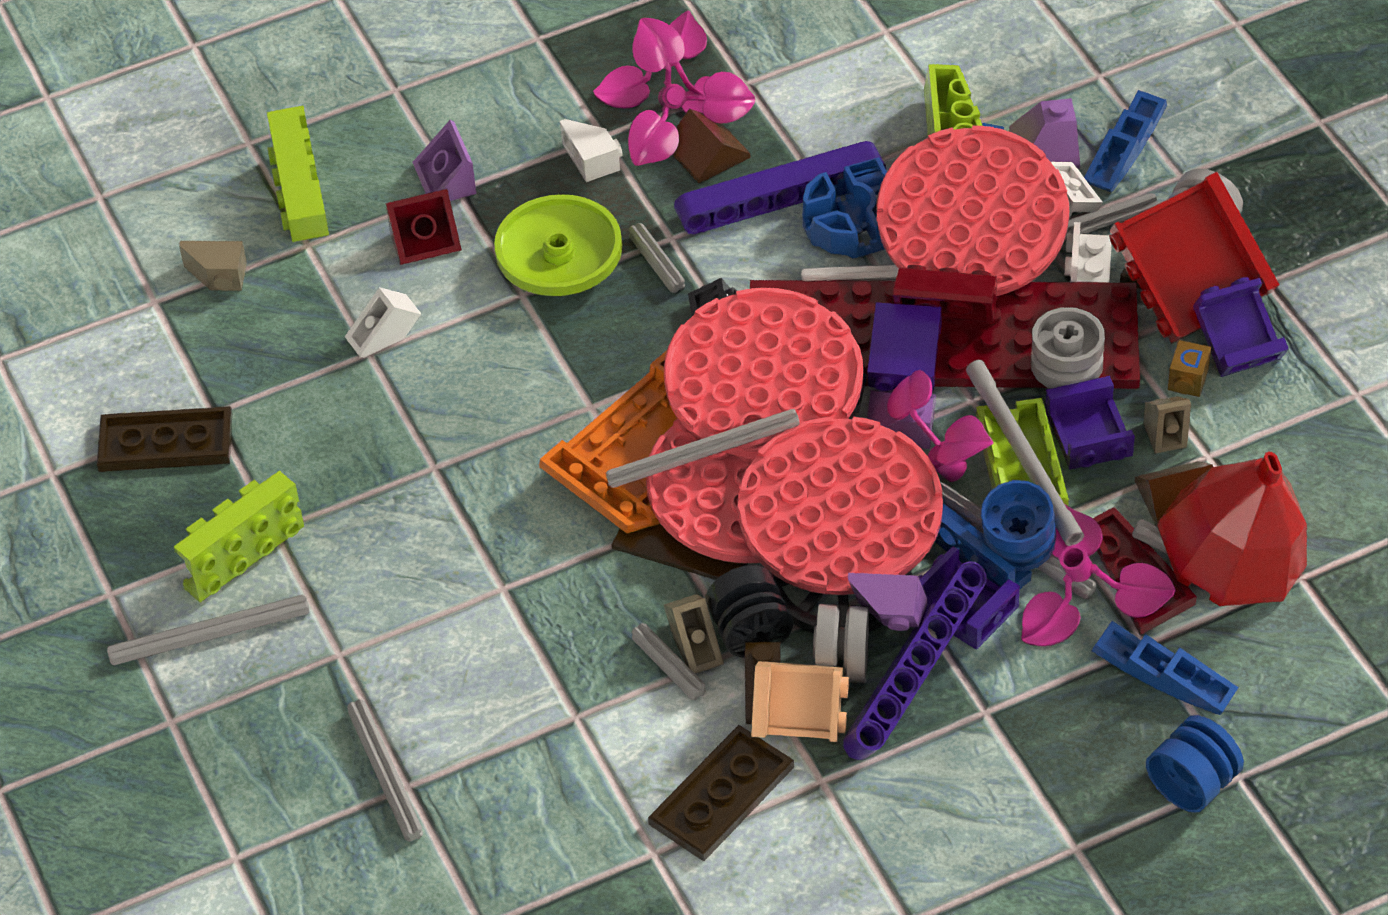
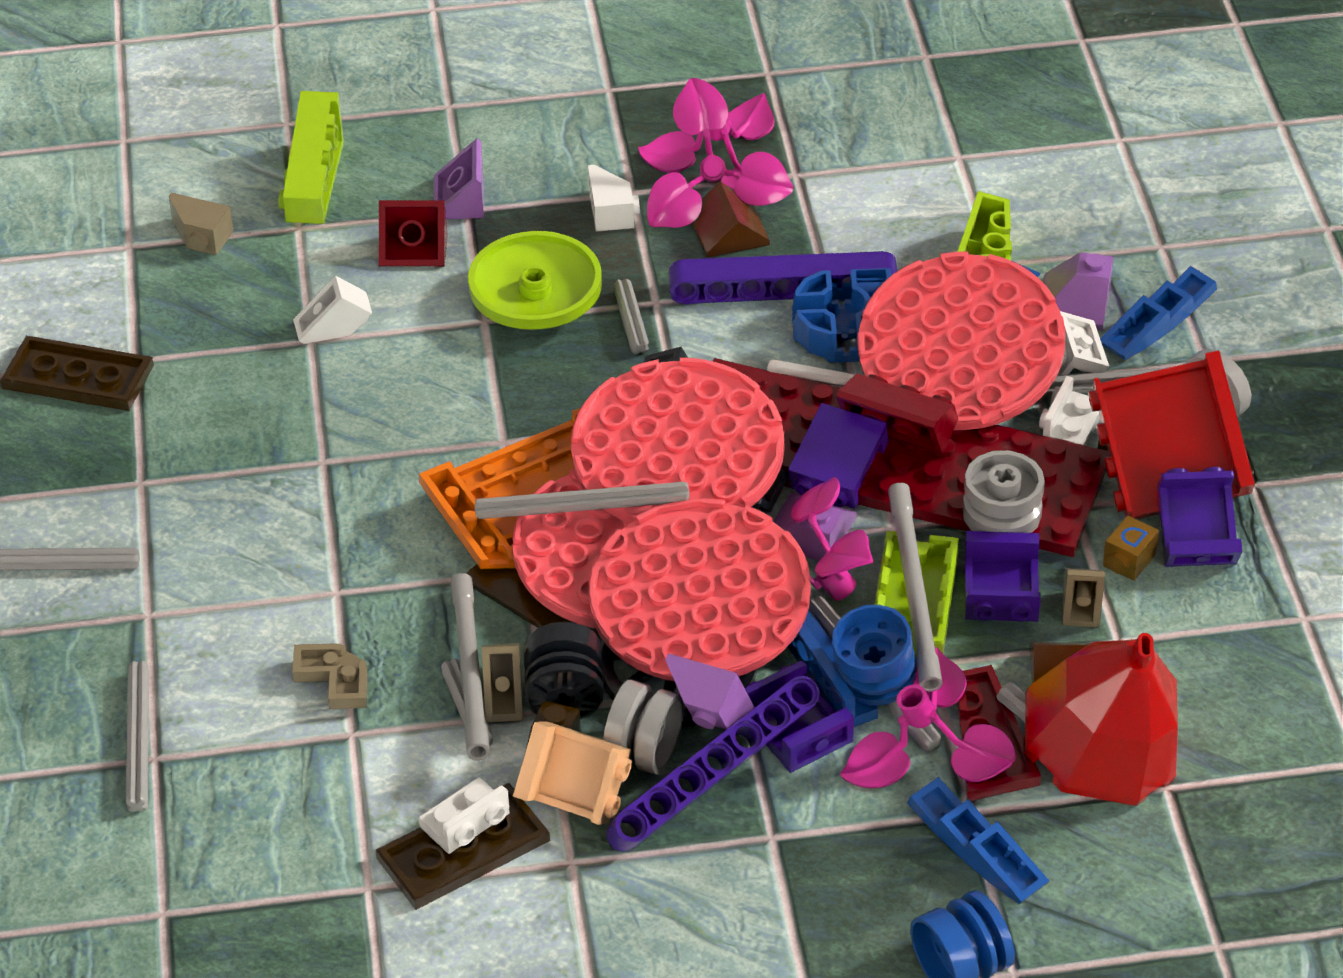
camera: 15 degrees right, 5 degrees down
(239, 534) = (96, 474): lime piece -> none
(532, 657) = (334, 664): none -> dark tan plate
(695, 684) = (476, 730): none -> light grey piece
(716, 764) = (465, 814): none -> white bracket

